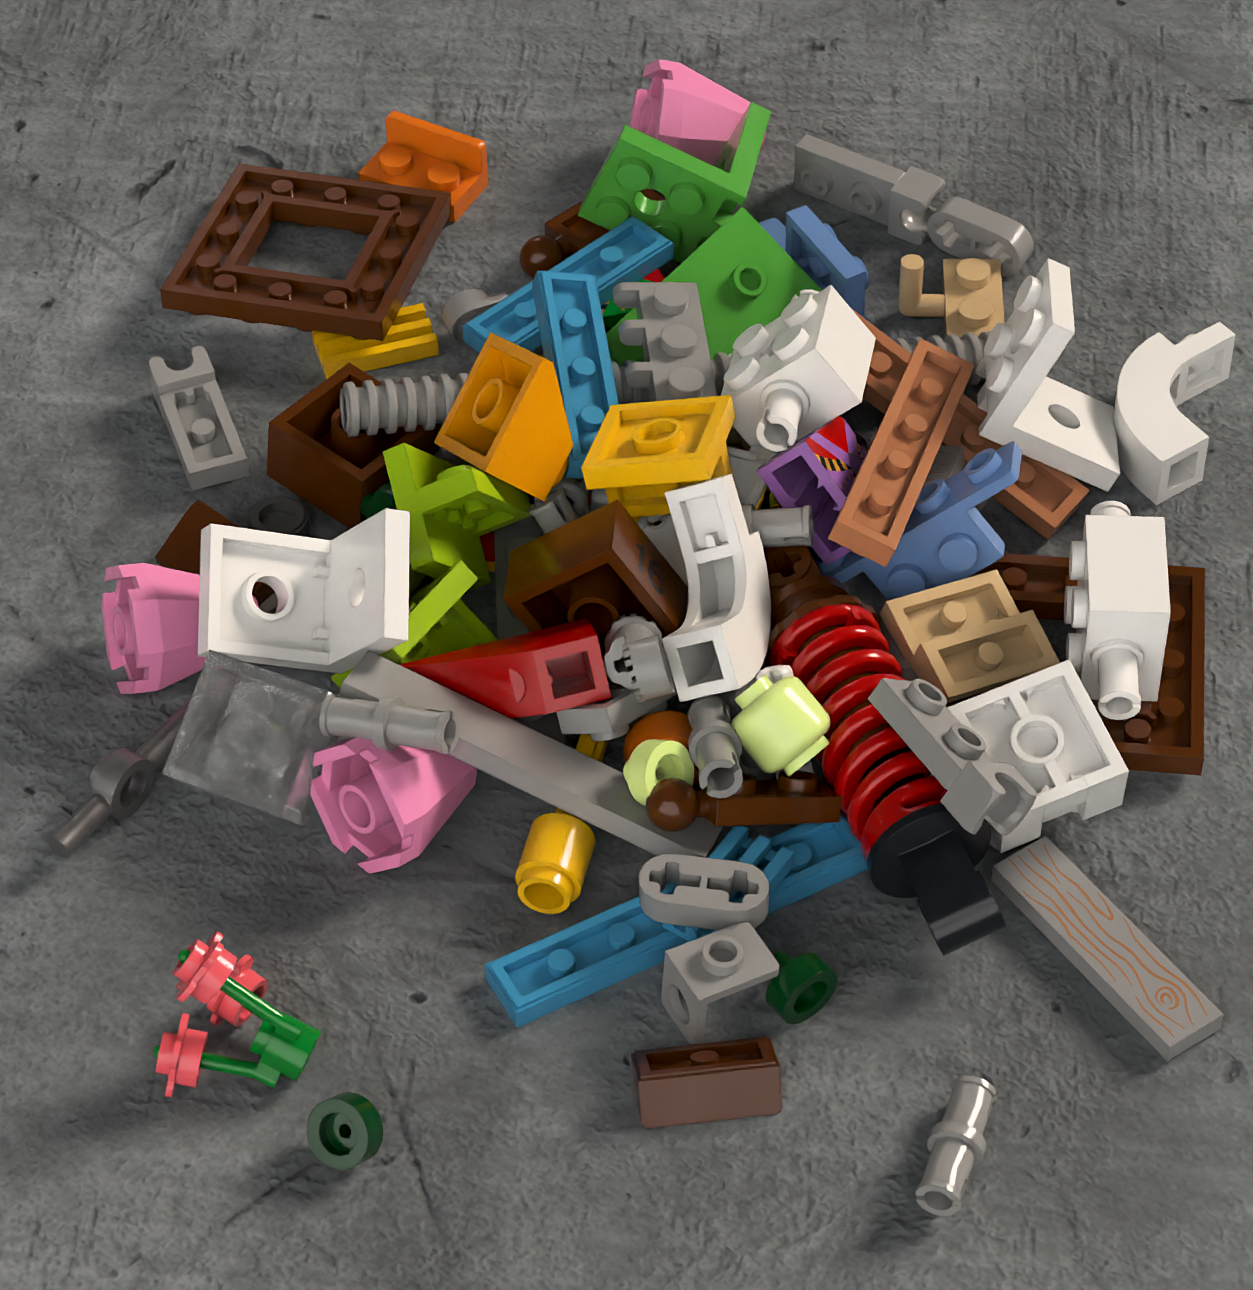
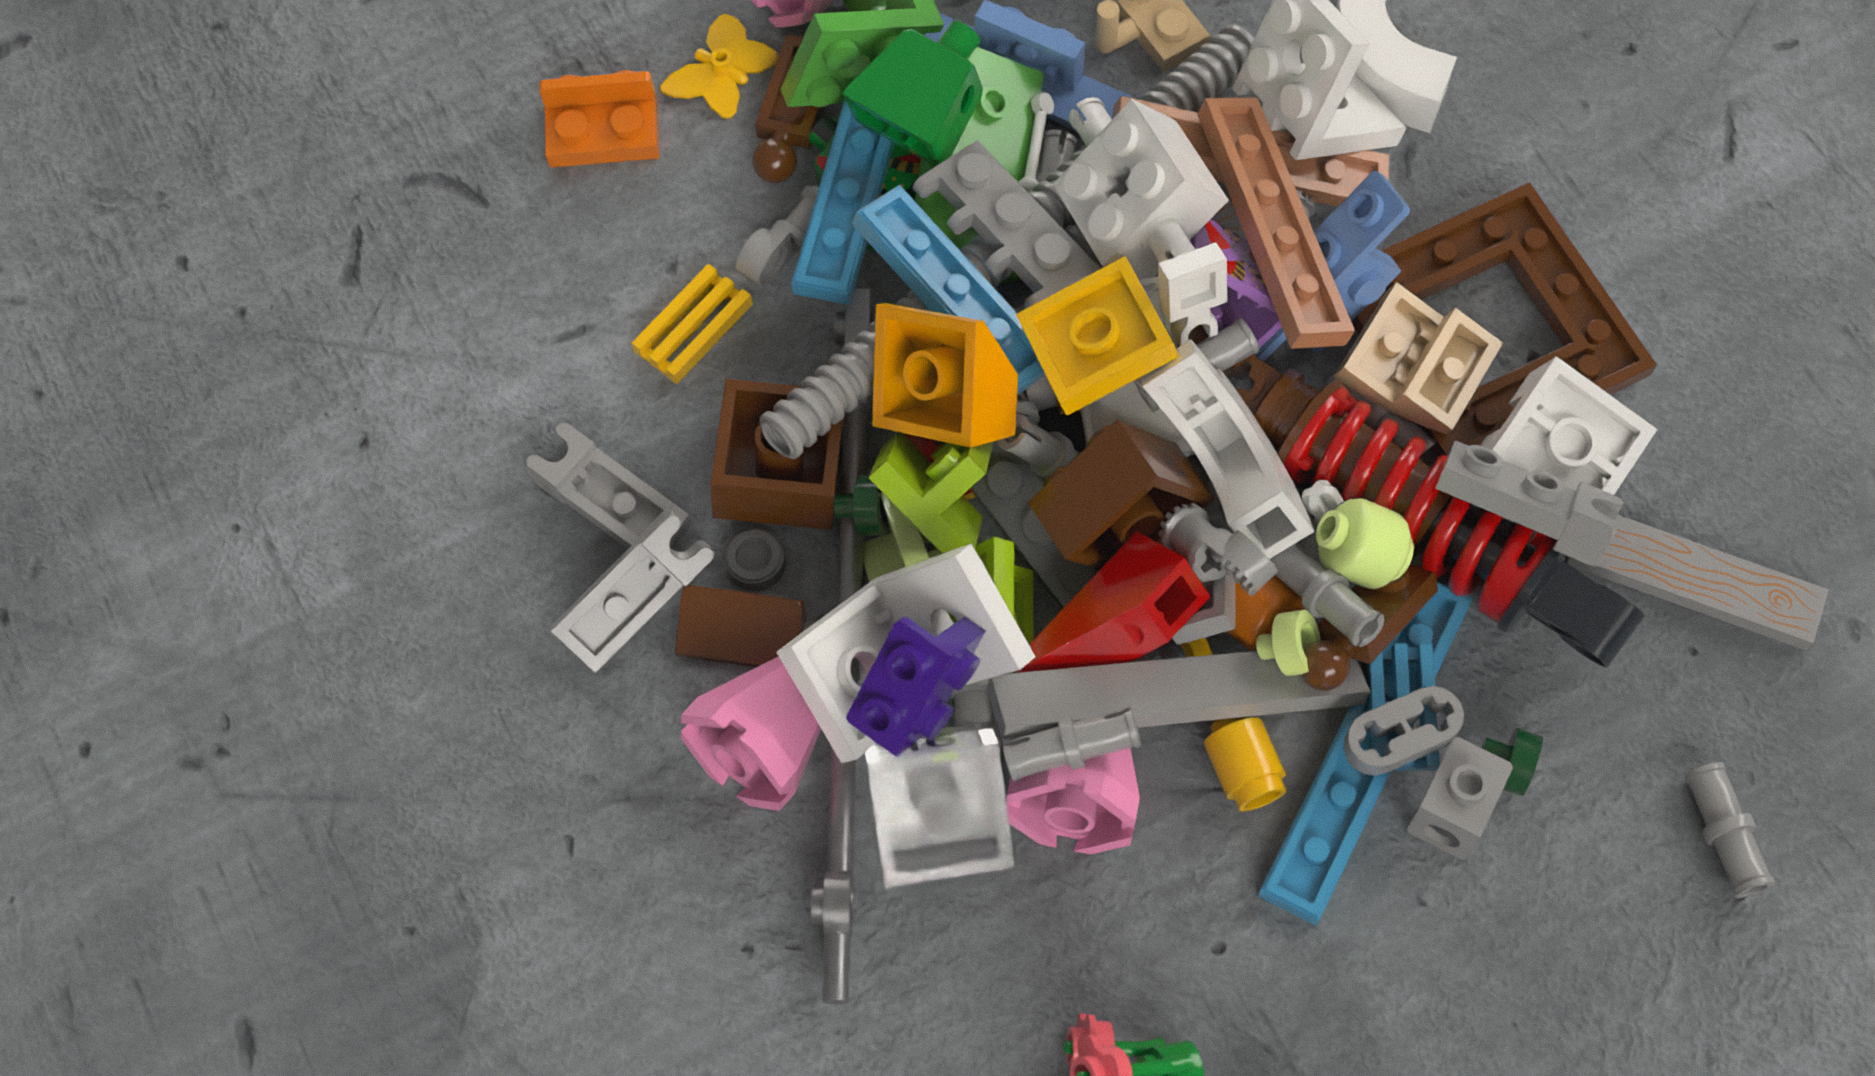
camera: 30 degrees left, 20 degrees up
(152, 484) = (630, 592): none -> light grey plate
(214, 269) = (523, 351): reddish brown plate -> none
(294, 606) = (913, 682): none -> dark purple bracket
(561, 181) = (722, 69): none -> yellow piece
(678, 225) = (920, 92): none -> green torso
(707, 1082) = (1499, 884): reddish brown slope -> none
(766, 440) = (1191, 287): none -> white plate
(1118, 608) = (1535, 273): white brick -> none

